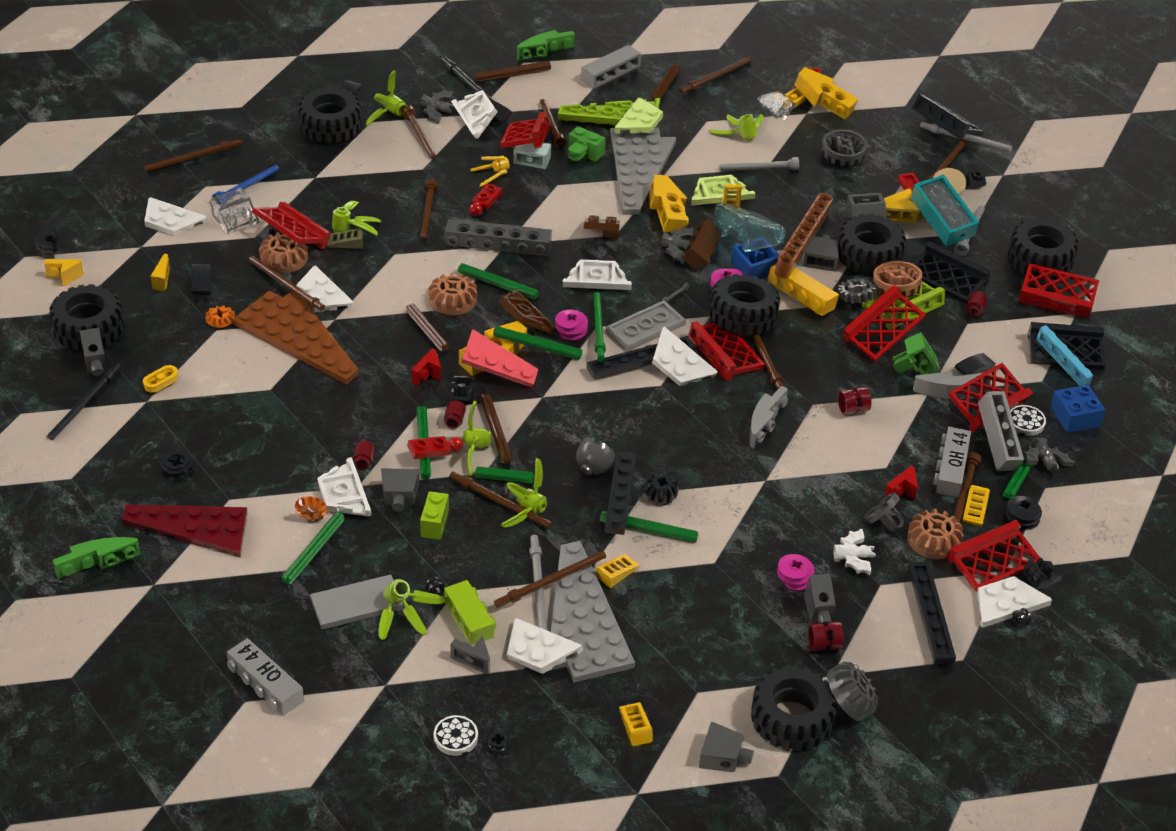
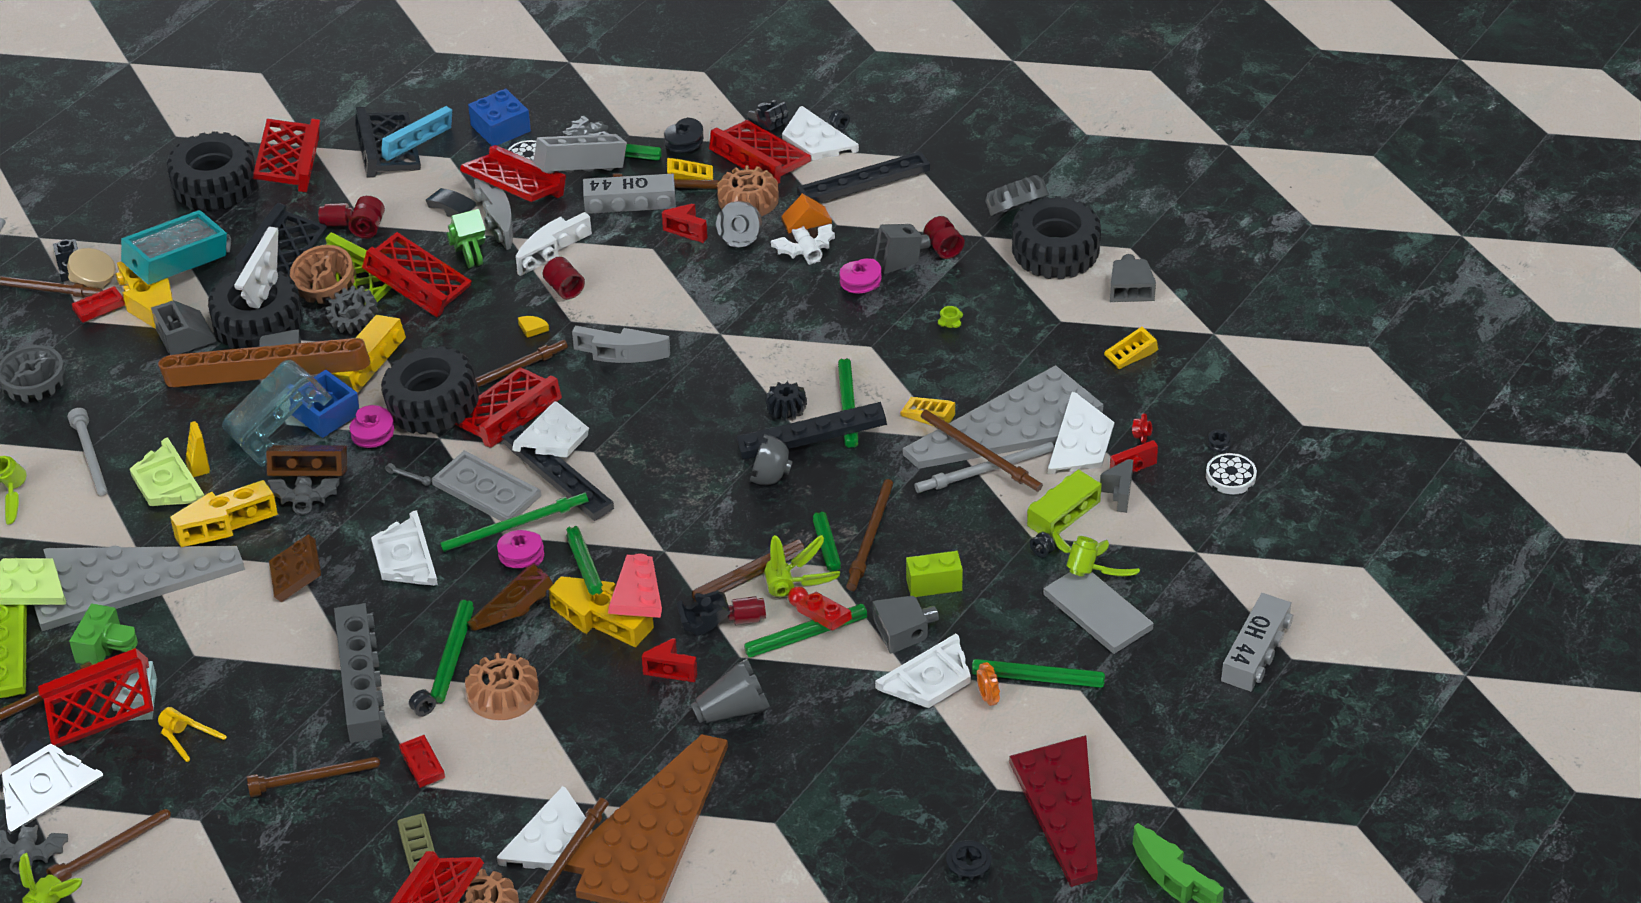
camera: 105 degrees left, 0 degrees up
(341, 219) = (383, 847): lime plant -> none
(363, 455) = (862, 673): dark red brick -> none
(376, 388) = (731, 696): none -> dark grey cone
(410, 251) = (422, 761): none -> red plate
(427, 327) = (580, 694): reddish brown axle -> none
(457, 258) = (422, 702): none -> black bush
(484, 199) = (264, 717): red plate -> none
(496, 672) = (1142, 456): none -> red plate
(528, 498) = (865, 495): lime plant -> none
(532, 691) = (1142, 428): none -> red plate
(725, 615) = (950, 317): none -> lime plate
(811, 379) = (532, 325): none -> yellow tile
(873, 221) = (260, 270): none -> white wing
(893, 565) = (805, 213): none -> orange slope
(904, 402) = (549, 239): none -> white slope
(967, 316) = (366, 217): none -> dark red wheel

